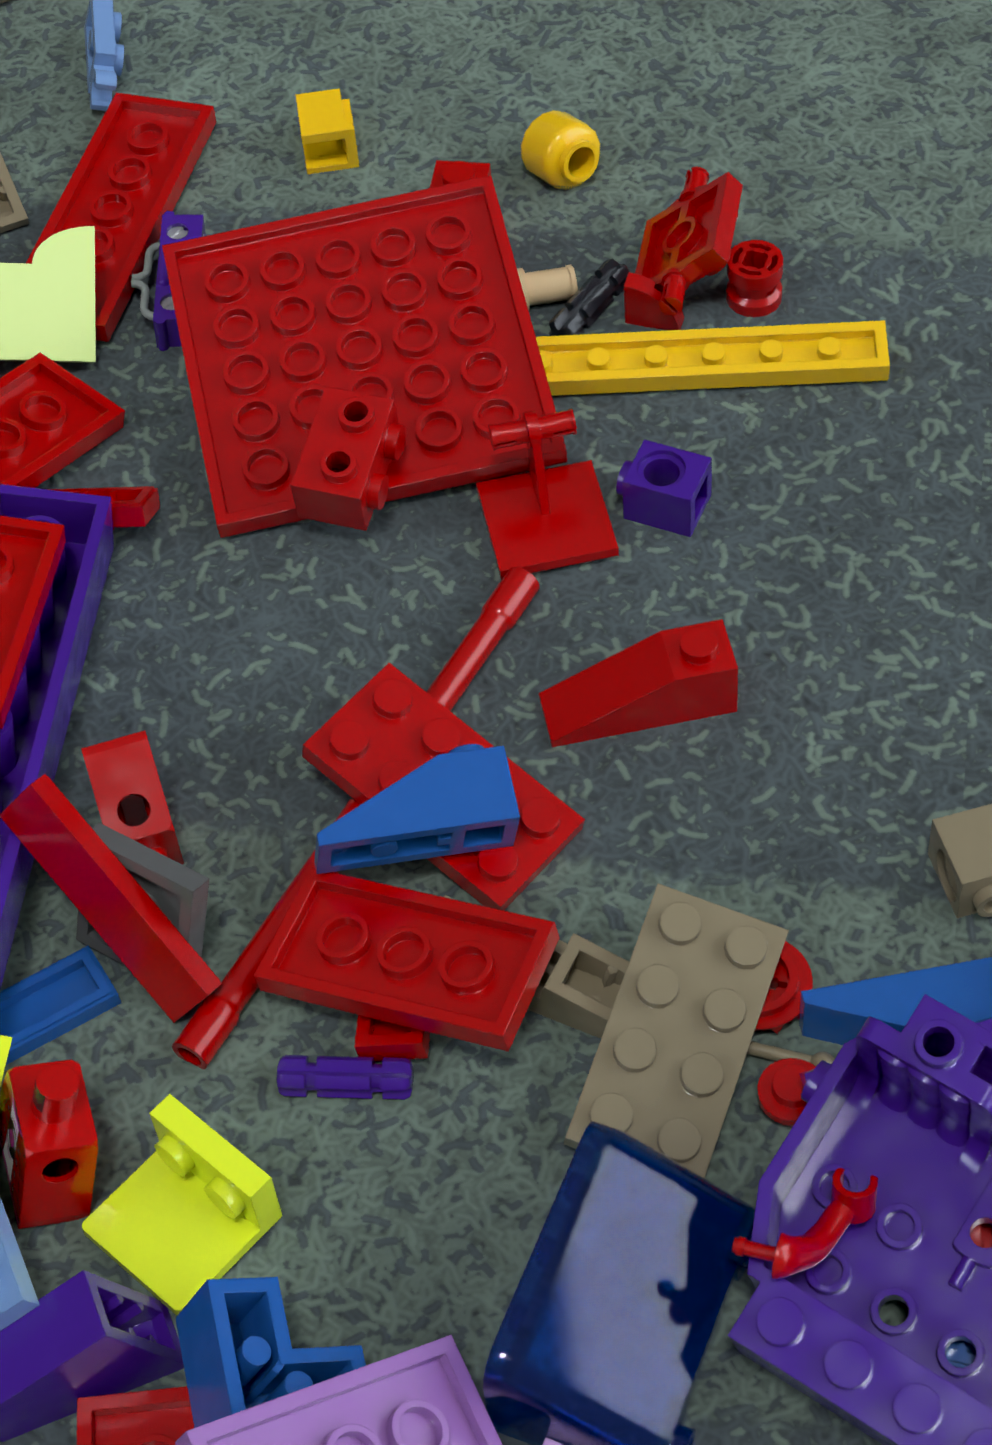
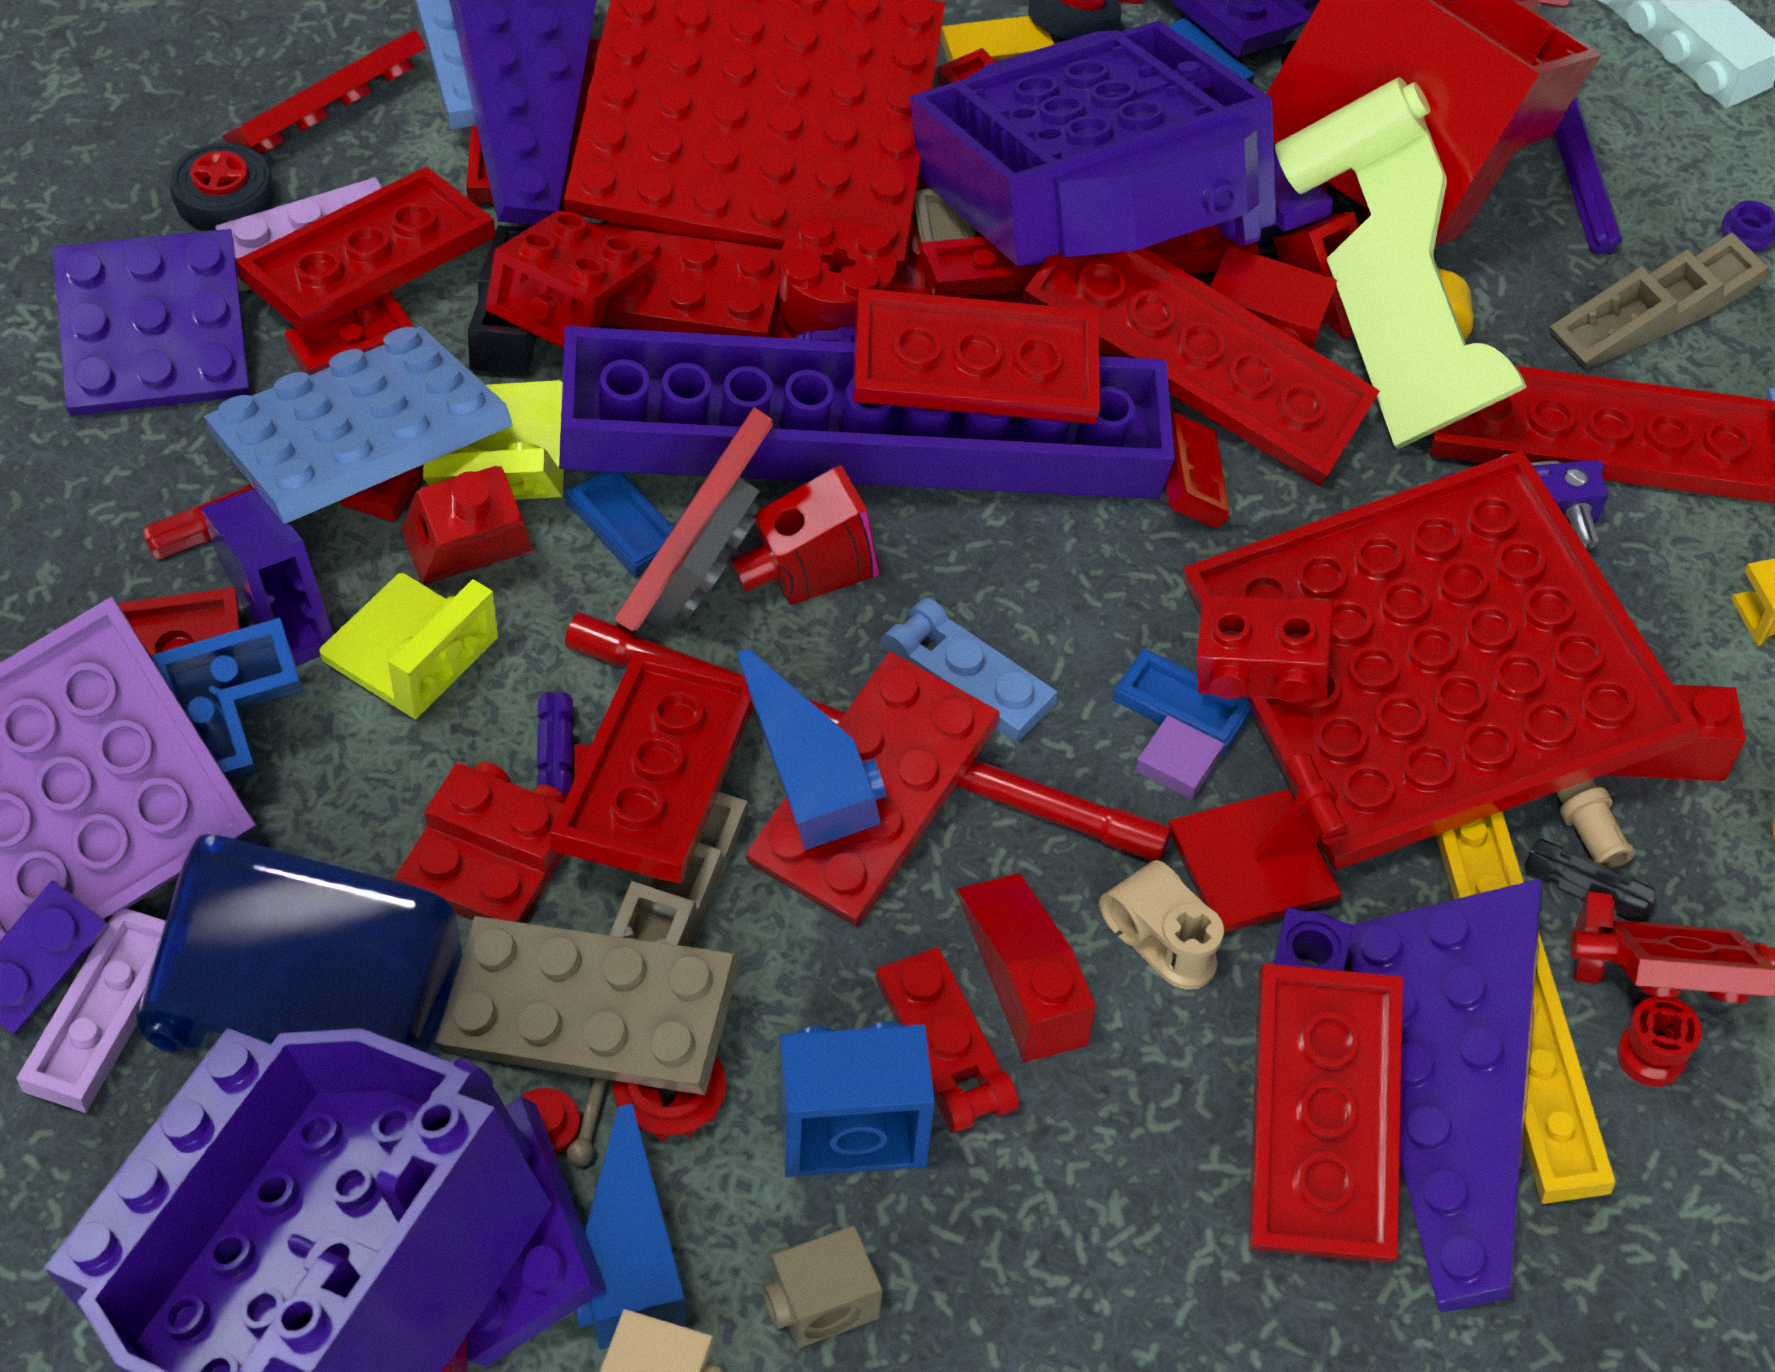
camera: 75 degrees right, 0 degrees up
(293, 713) = (971, 667): none -> medium blue plate
(360, 557) = (1164, 689): none -> blue tile
(425, 561) = (1179, 757): none -> medium lavender tile
(464, 1138) = (486, 844): none -> red plate
(608, 585) = (1165, 920): none -> tan piece
(716, 762) = (926, 993): none -> red plate
(776, 404) = (1463, 1075): none -> dark purple wing
(803, 810) = (855, 1099): none -> blue brick
(805, 1251) = (288, 1063): red piece -> none
(822, 484) = (1326, 1114): none -> red plate

